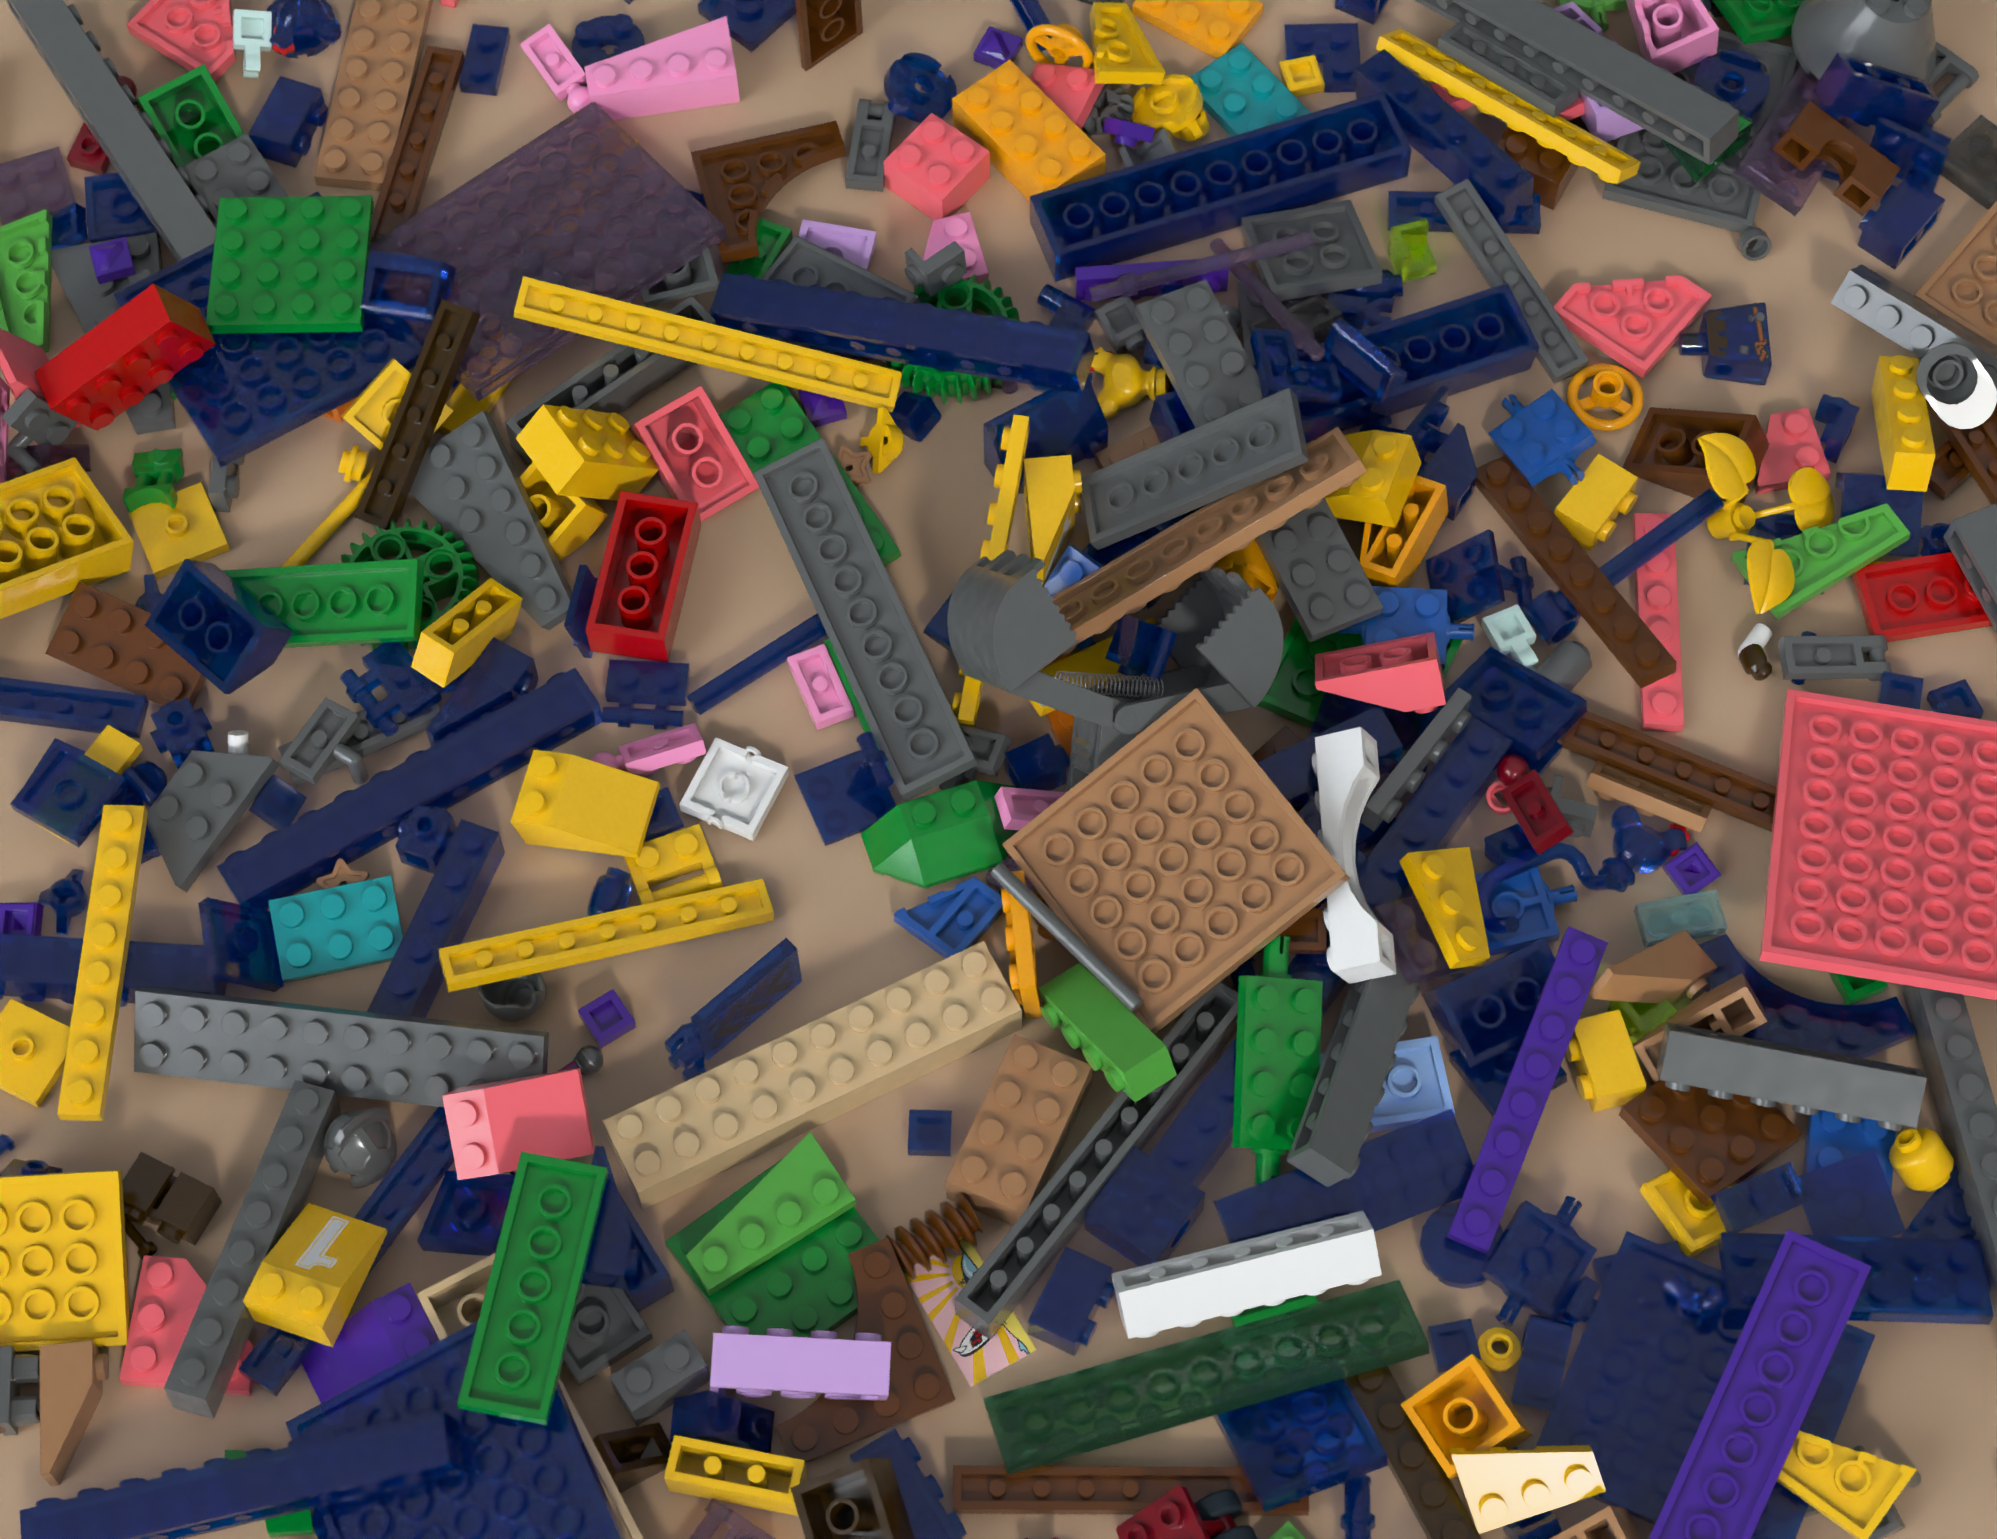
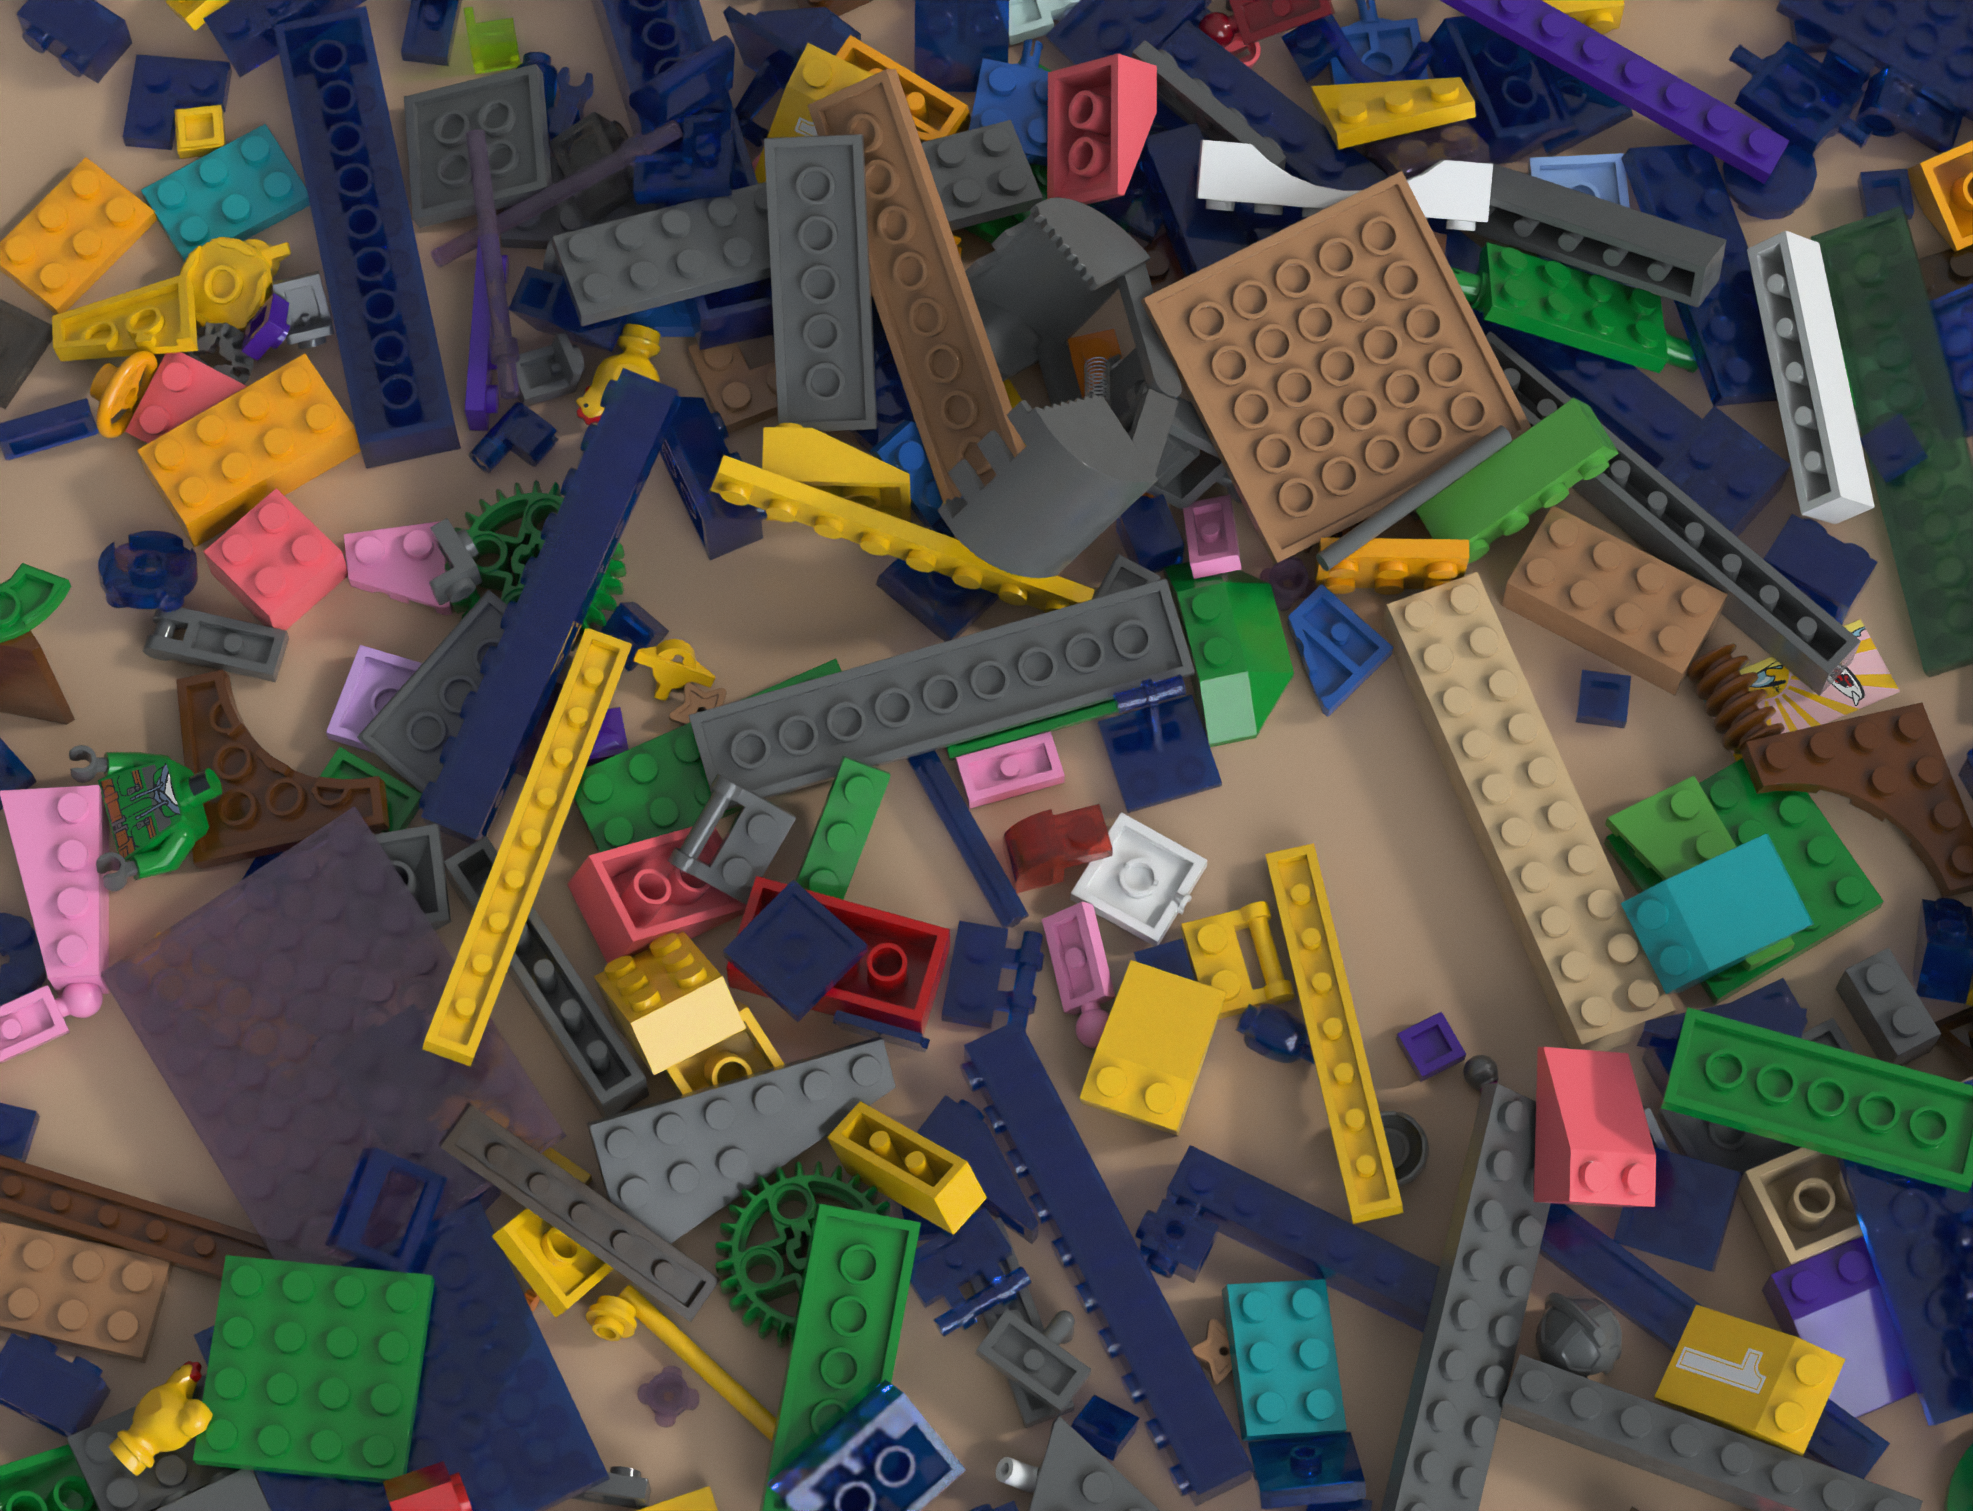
camera: 85 degrees left, 5 degrees up
(249, 177) = (163, 1420): none -> yellow animal
(294, 501) = (668, 1381): none -> clear purple plate
(631, 529) = (795, 950): none -> clear blue plate
(717, 1212) = (1716, 914): none -> teal slope
(722, 116) = (150, 809): none -> torso
(729, 500) = (747, 845): none -> dark grey plate
(734, 1009) = (1448, 890): clear blue tile -> none
(745, 564) = (842, 828): none -> green plate
(751, 719) = (1047, 843): none -> clear red brick
(800, 1364) = (1901, 849): lavender wedge -> none
(997, 48) = (91, 478): dark purple tile -> none
(1140, 647) = (1046, 373): clear blue brick -> none
(1190, 1353) = (1893, 447): none -> clear blue plate
(1496, 1361) = (1889, 140): yellow plate -> none

